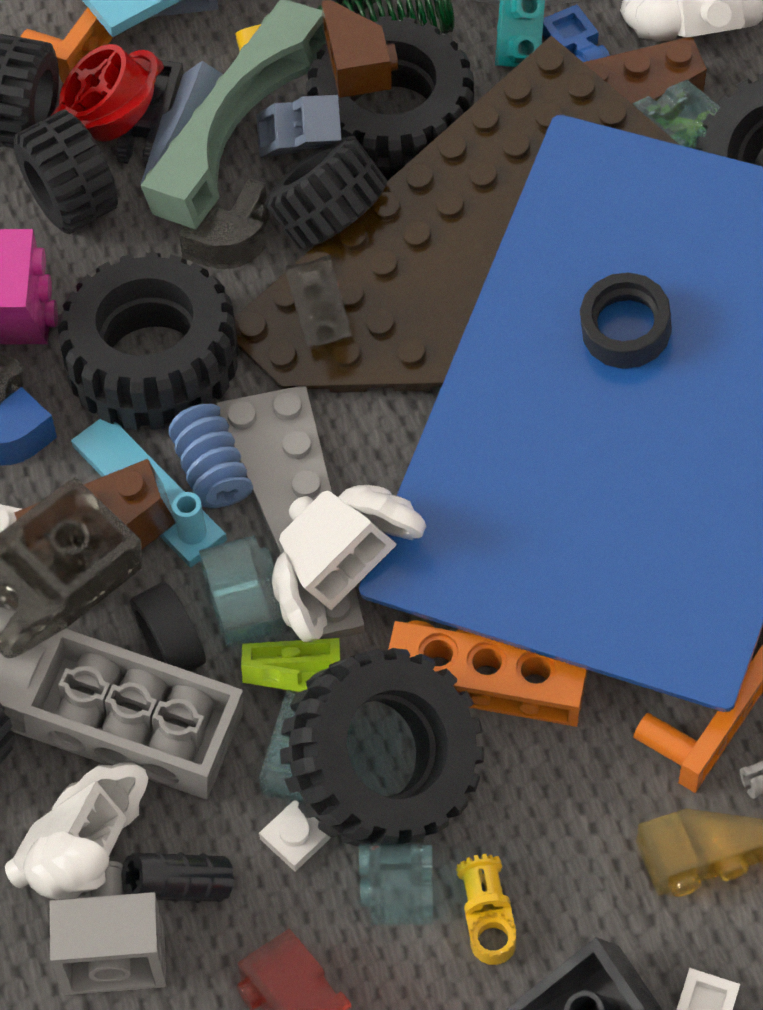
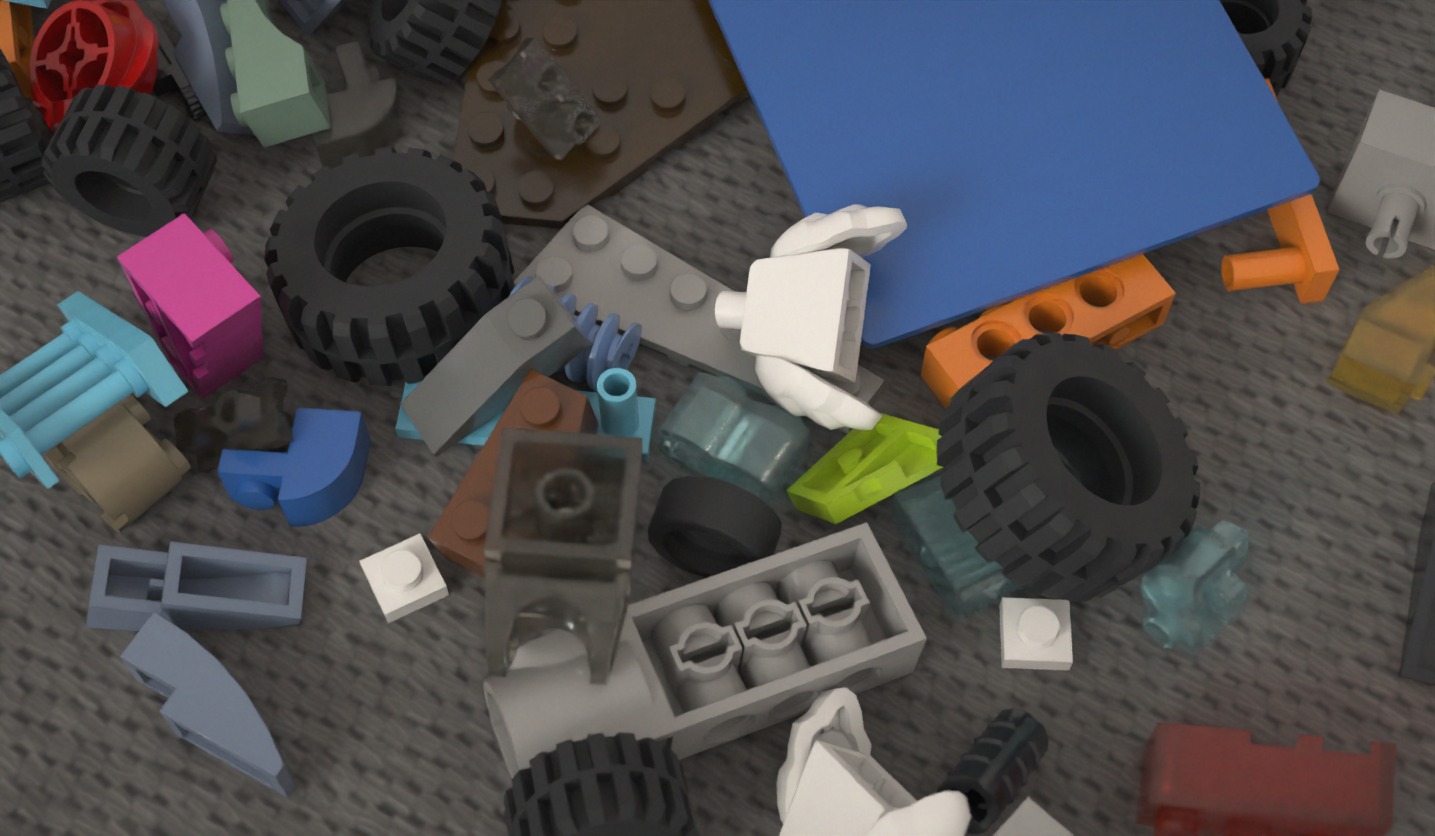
camera: 45 degrees left, 0 degrees up
(168, 436) = (491, 362): none -> dark grey slope
(487, 908) = (1290, 545): yellow connector -> none

